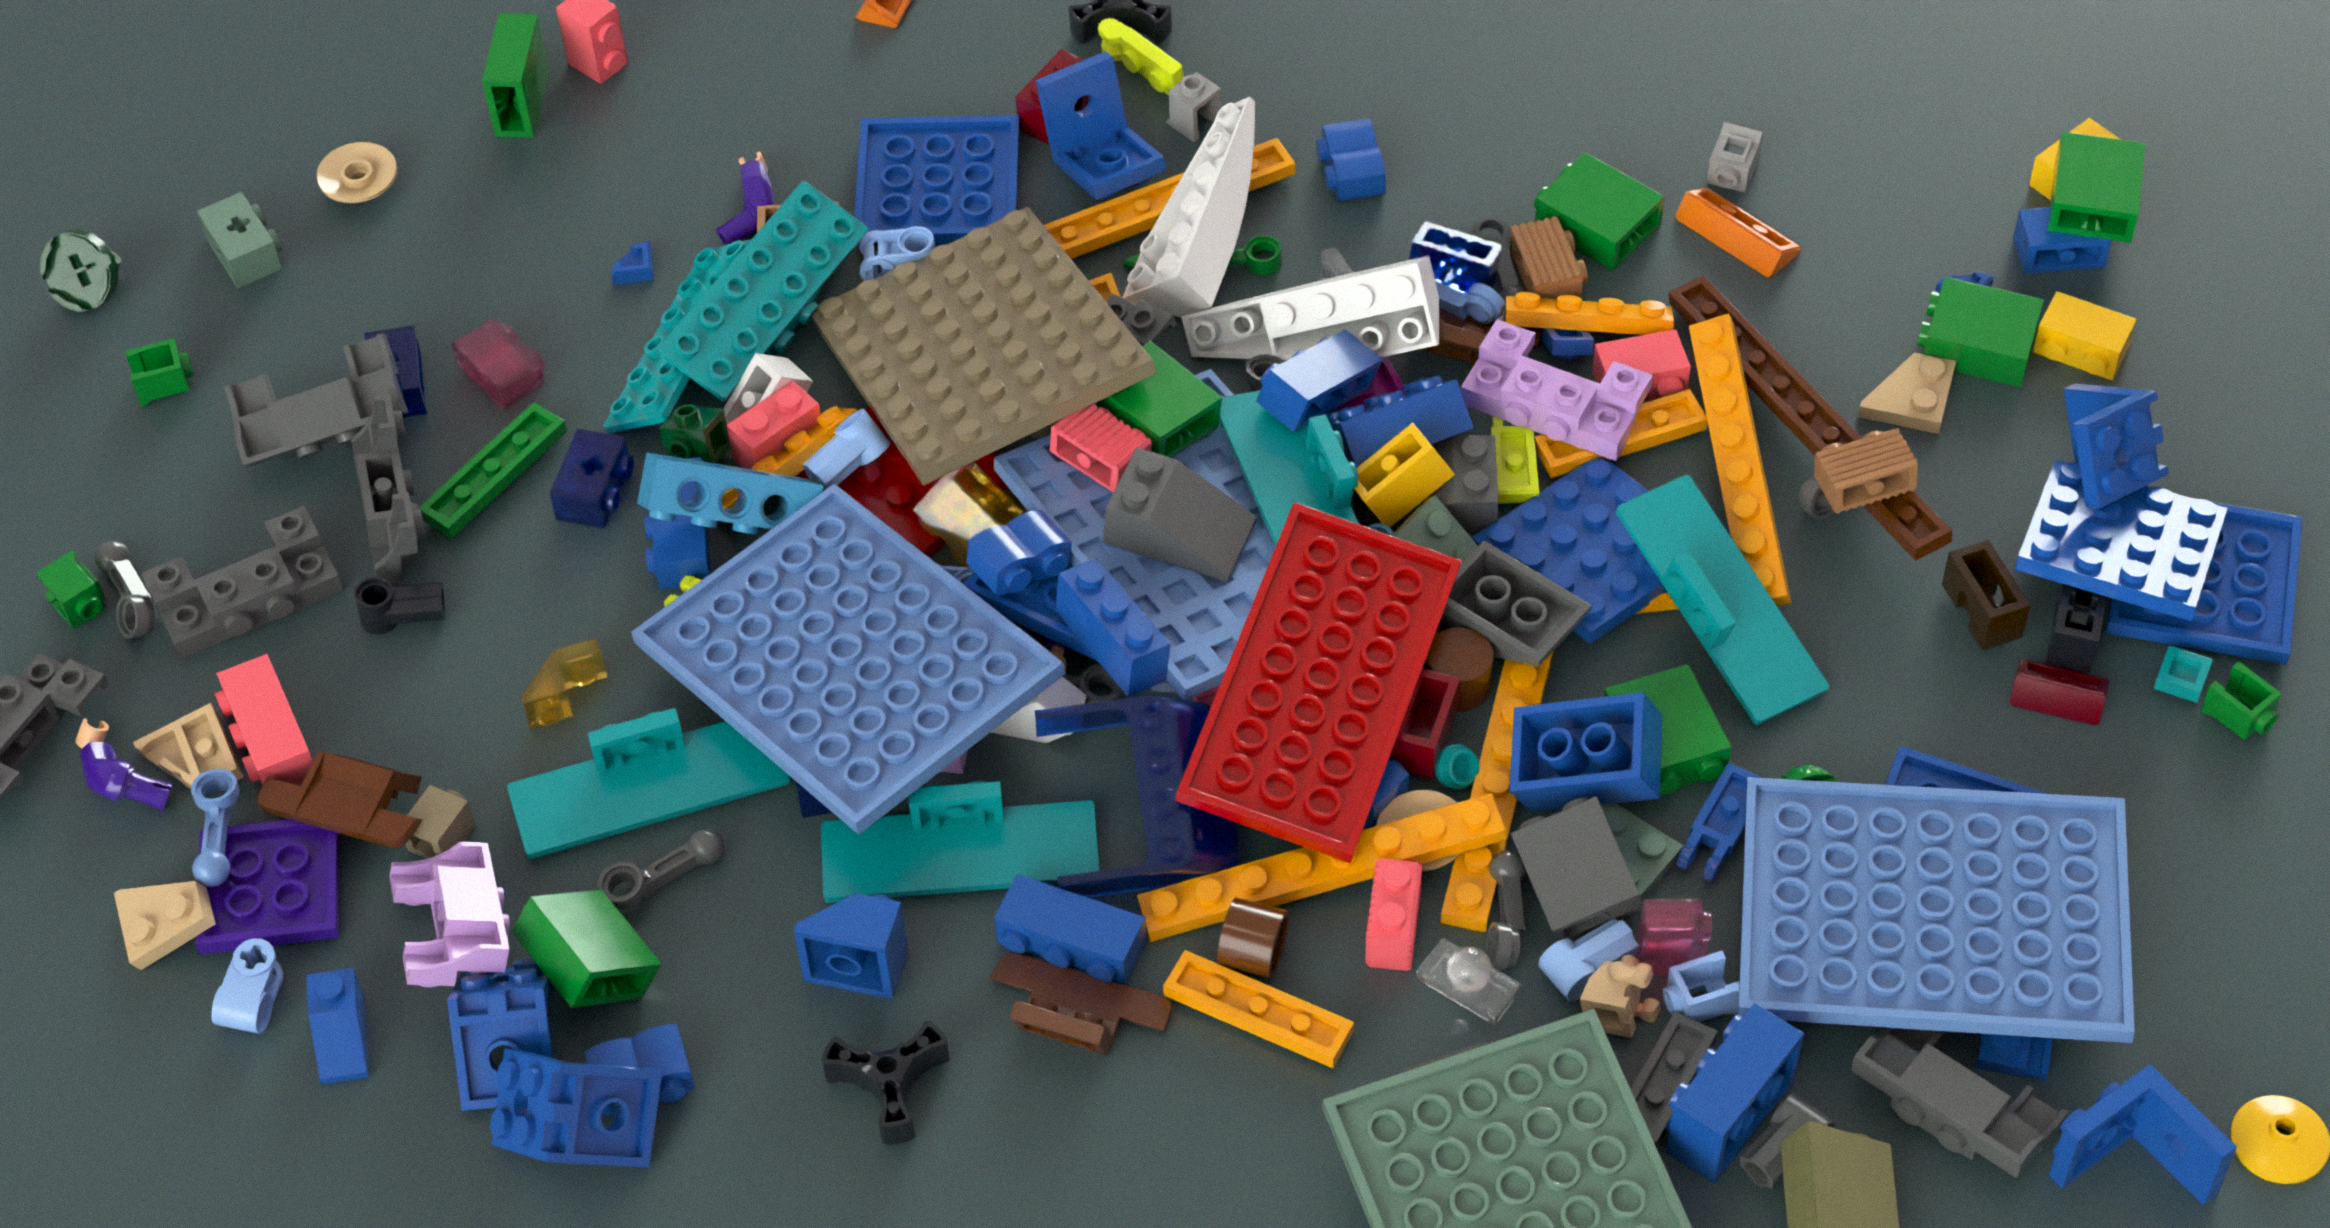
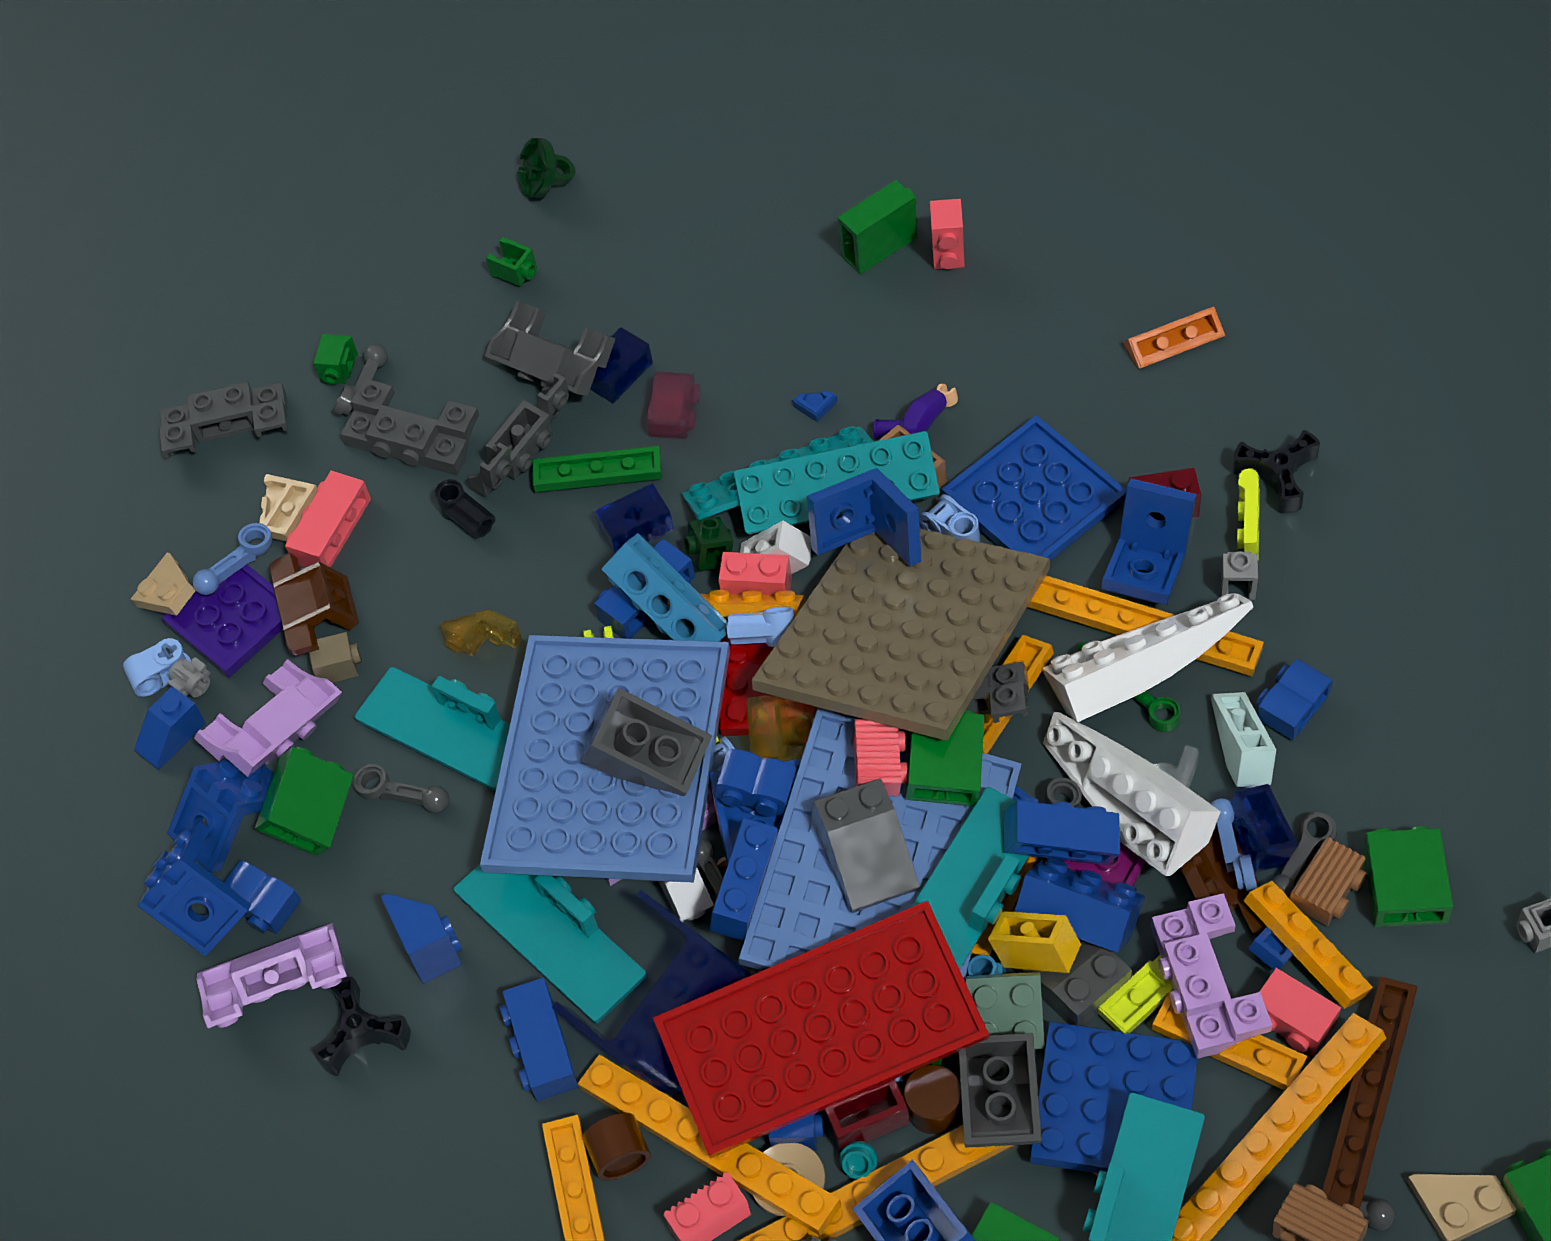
camera: 55 degrees right, 5 degrees up
(113, 776) = (232, 484): dark purple arm -> none
(241, 239) = (637, 214): sand green brick -> none
(299, 961) = (189, 677): none -> light grey gear
(356, 172) = (738, 220): tan dish -> none
(730, 1136) = (277, 968): none -> lavender bracket
(832, 276) = (870, 506): none -> blue bracket
(881, 604) = (646, 745): none -> dark grey slope
(1074, 1006) = (489, 1087): reddish brown plate -> none
(1356, 218) = (1244, 740): none -> light aqua slope
(1736, 231) = (1490, 975): orange slope -> none

